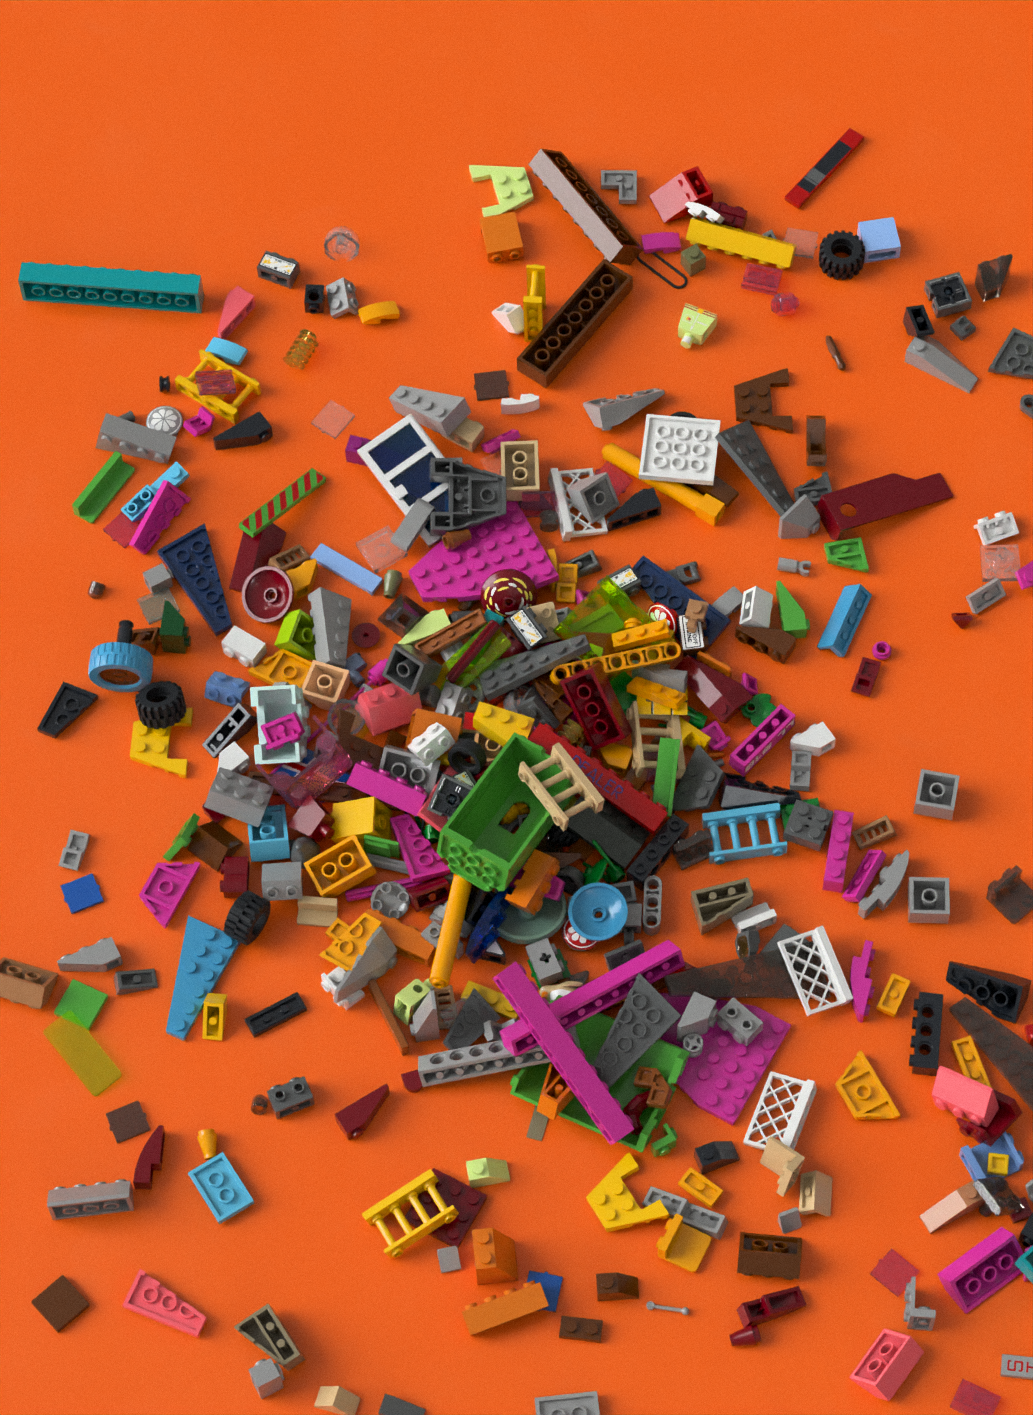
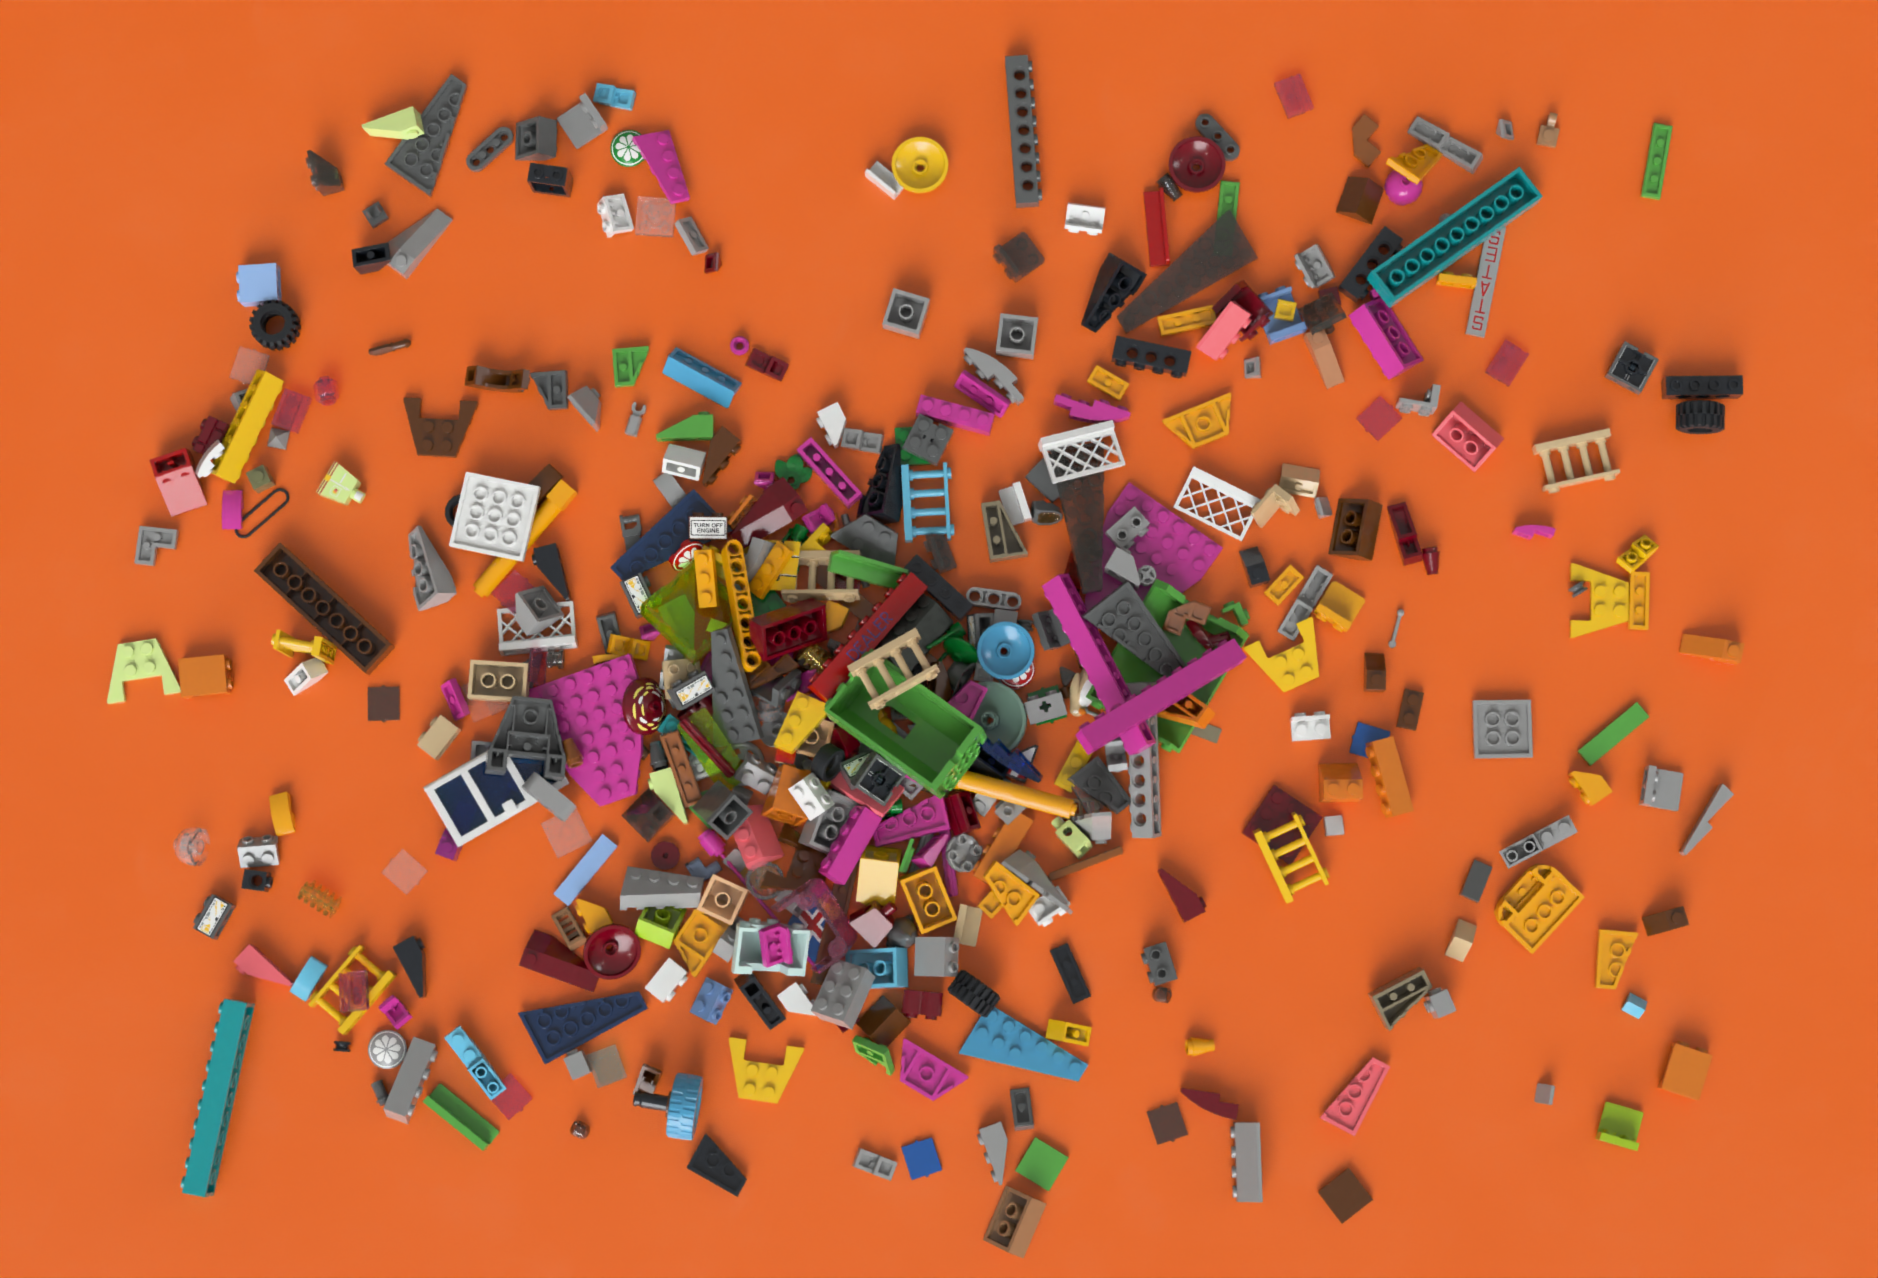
camera: 80 degrees left, 20 degrees up
(82, 1053) = (1093, 1164): clear neon green piece -> none
(160, 704) = (714, 1068): black tyre -> none
(162, 509) = (506, 1061): dark pink wing -> none
(173, 631) = (644, 1049): dark green slope -> none
(221, 1188) = (1244, 1036): medium azure plate -> none
(282, 502) = (507, 929): bright green tile -> none
(384, 862) = (930, 852): none -> dark pink slope
(392, 581) = (609, 824): olive cone -> none
(412, 1081) = (1151, 846): dark red tile -> none
(431, 409) = (415, 766): light grey wedge -> none
(487, 1172) = (1251, 782): yellowish green slope -> none
(526, 404) = (412, 668): slope -> none
(534, 882) = (974, 708): orange wedge -> none
(551, 1227) = (1310, 727): none -> white bracket
(585, 207) = (182, 583): brick -> none
(631, 623) = (691, 585): light orange plate -> none
(695, 612) = (690, 520): medium nougat plate -> none
(734, 273) = (278, 438): none -> light grey slope
(749, 454) = (509, 446): dark grey wing -> none
(824, 168) = (159, 329): tile -> none
(870, 827) = (926, 365): medium nougat slope -> none
(879, 500) = (573, 324): dark red piece -> none
(930, 1139) = (1252, 368): none -> light grey slope
(948, 295) = (337, 223): piece -> none
(1019, 463) = (543, 177): none -> black window

